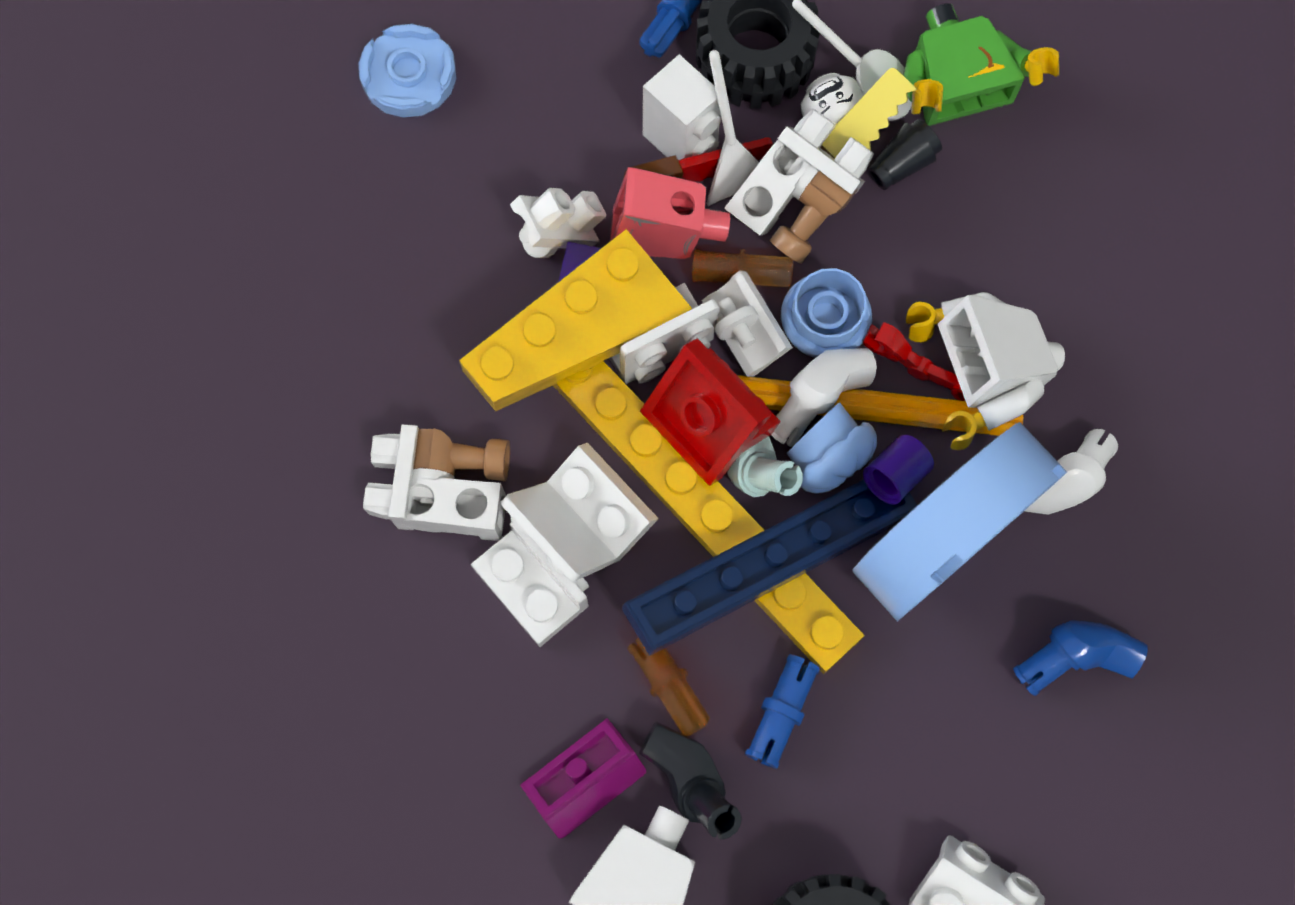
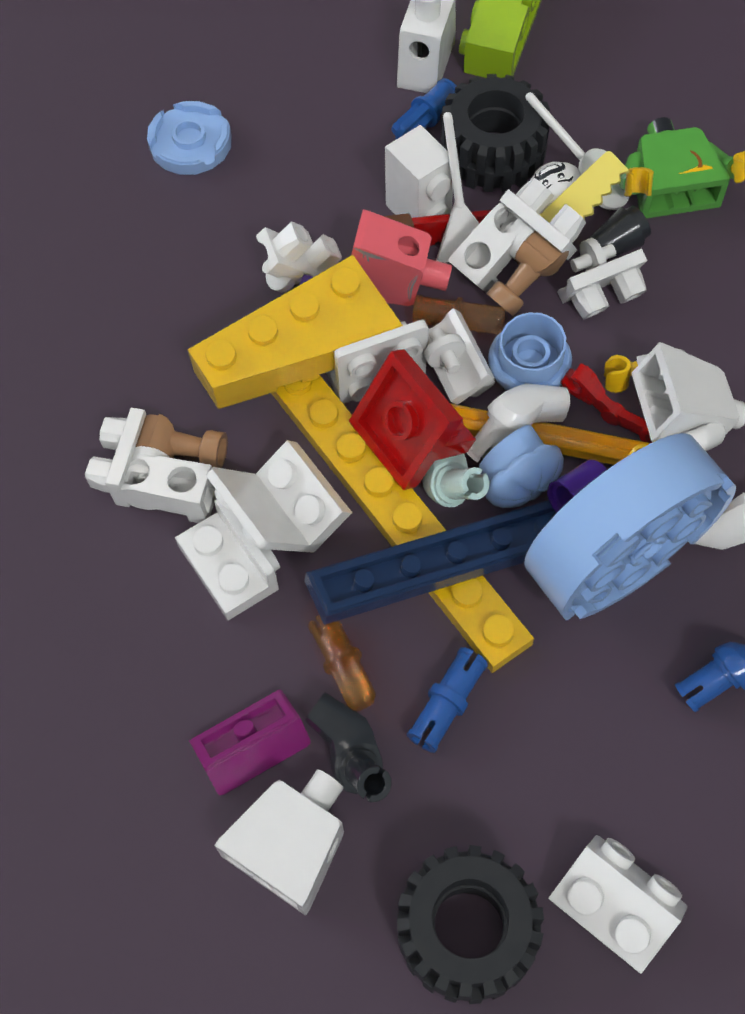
camera: 10 degrees right, 10 degrees down
(916, 203) = (586, 287): none -> white hips

